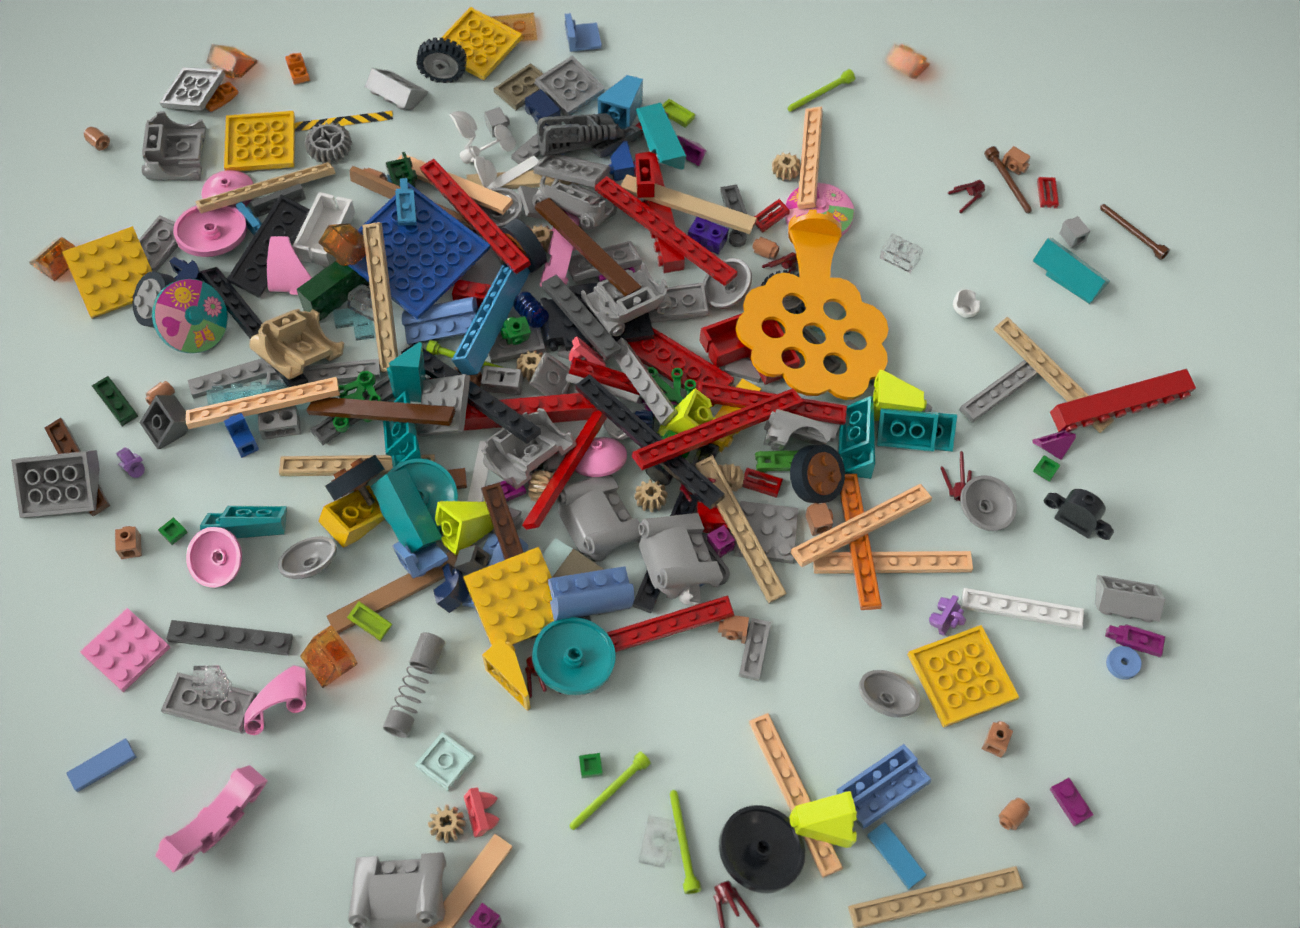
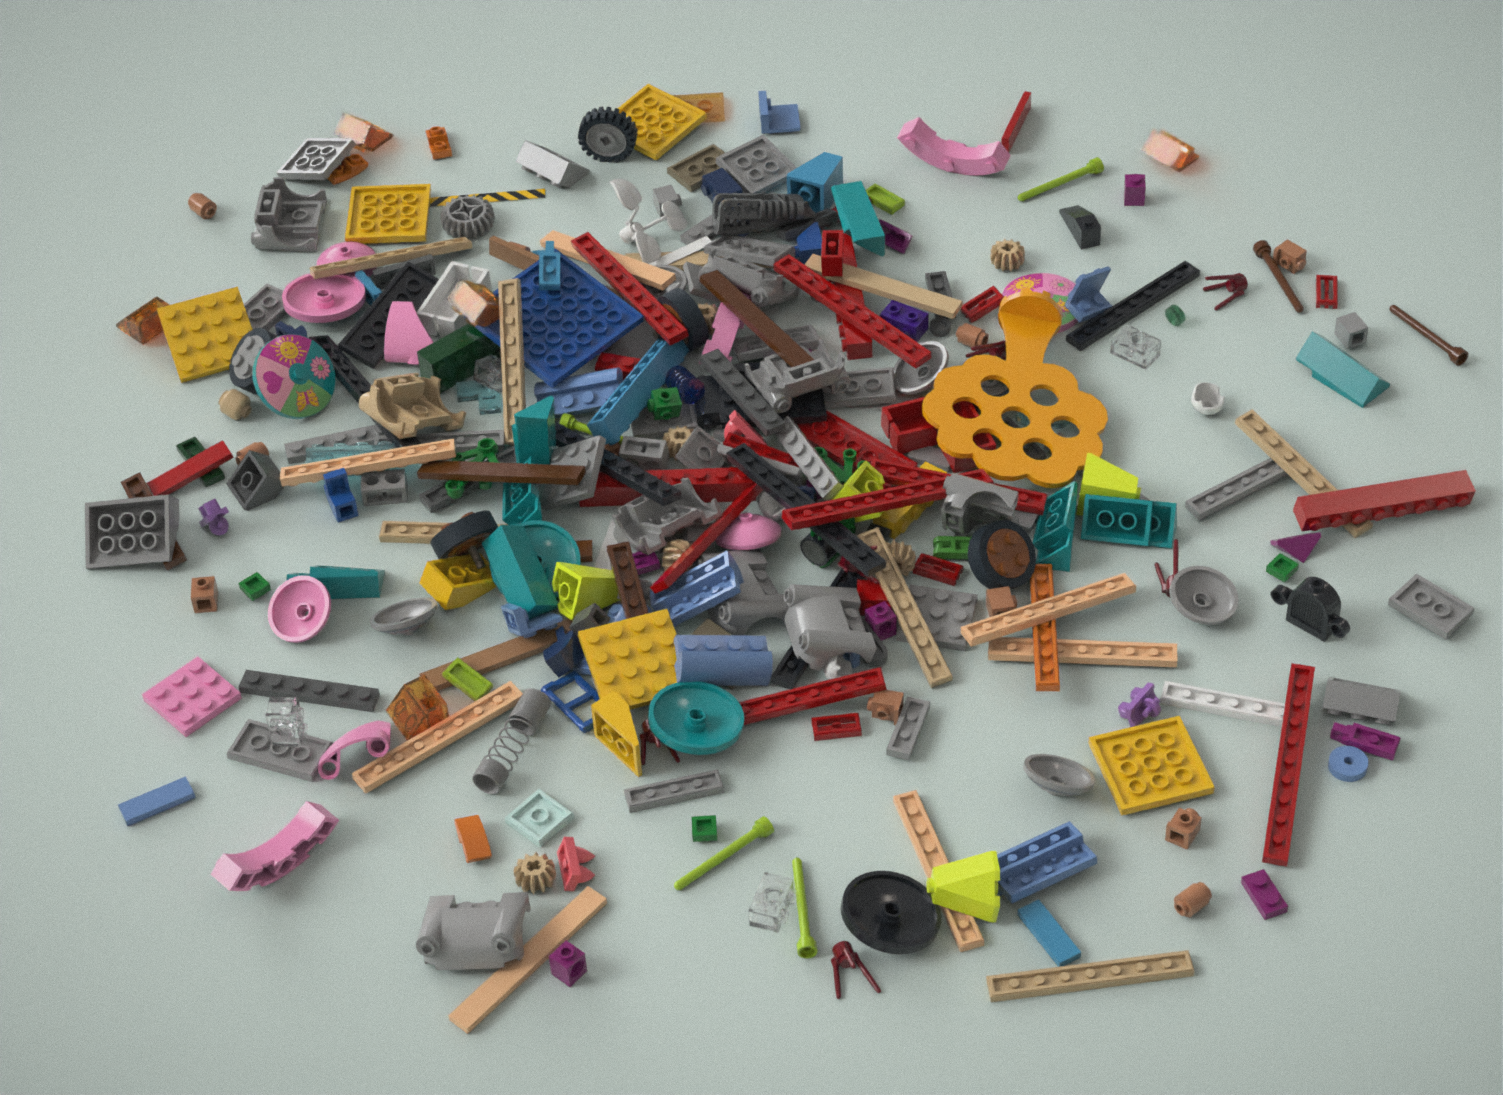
camera: 10 degrees right, 15 degrees down
(105, 412) = (190, 469): none -> red tile
(140, 342) = (235, 404): none -> tan head
(348, 682) = (437, 737): none -> light nougat plate
(388, 789) = (473, 838): none -> orange slope
(401, 169) = (539, 241): dark green bracket -> none
(458, 644) = (567, 708): none -> blue window
(559, 725) = (673, 791): none -> light grey tile
(565, 524) = (700, 588): none -> medium blue brick
(651, 502) = (805, 572): tan gear -> none
(685, 658) = (837, 729): none -> red tile
(731, 70) = (952, 155): none -> bright pink brick
(779, 36) = (1016, 121): none -> red tile
(810, 158) = (1038, 243): light nougat tile -> none
(843, 134) = (1082, 226): none -> black slope
(858, 209) = (1085, 299): none -> medium blue bracket
(883, 99) = (1134, 190): none -> magenta brick
(892, 211) = (1132, 305): none -> black tile
(929, 221) = (1175, 315): none -> clear green tile
(1077, 671) = (1288, 765): none -> red plate
(1172, 501) = (1431, 606): none -> light grey plate

